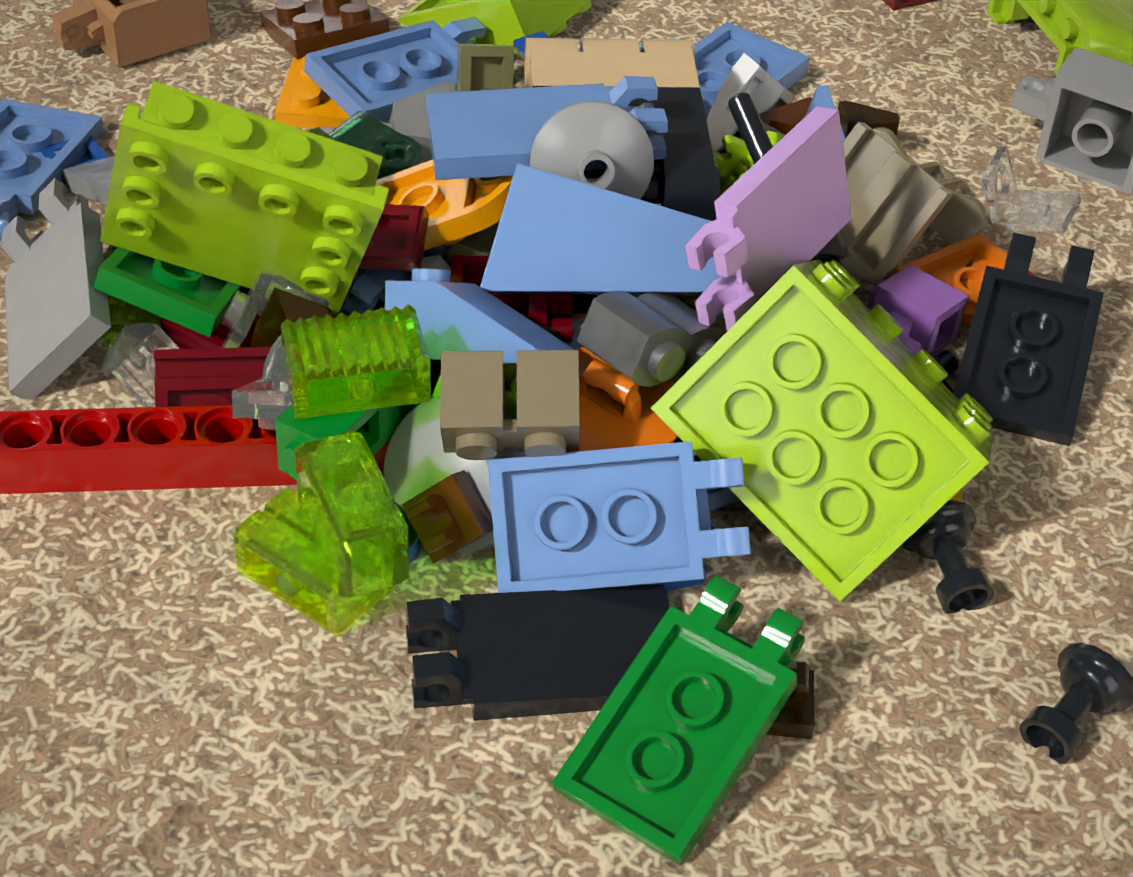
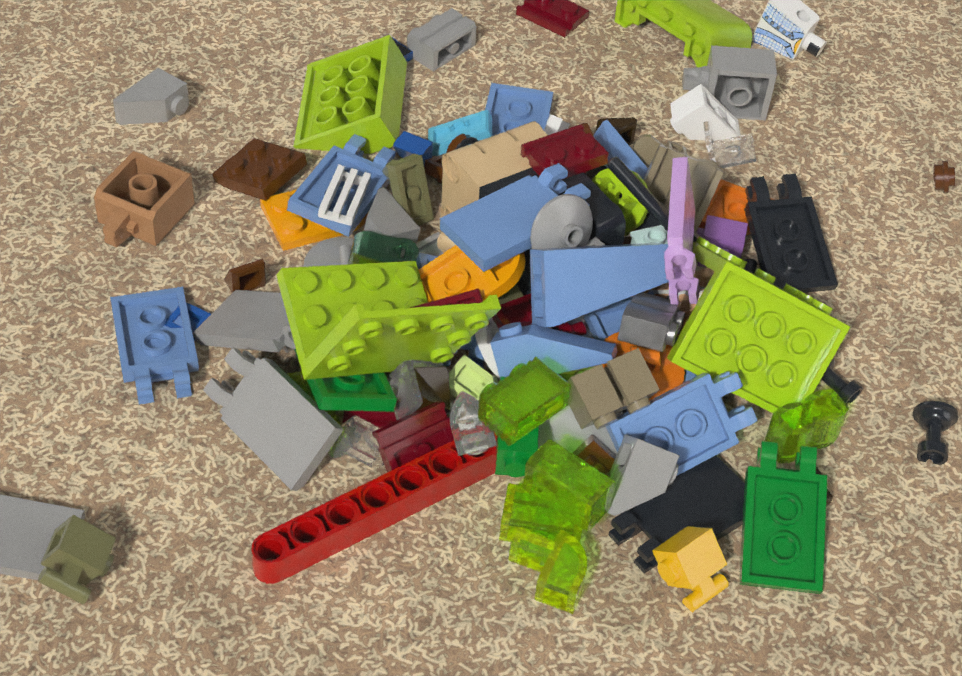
camera: 30 degrees left, 5 degrees up
(273, 638) = (560, 563): none -> clear neon green brick
(378, 66) = (350, 179): none -> white tile
(476, 709) = (688, 563): none -> yellow brick
(492, 551) = (640, 473): none -> light grey slope
(693, 79) = (569, 147): none -> dark red plate
(845, 599) = (807, 423): none -> clear neon green brick
(1034, 149) = (698, 107): none -> white slope

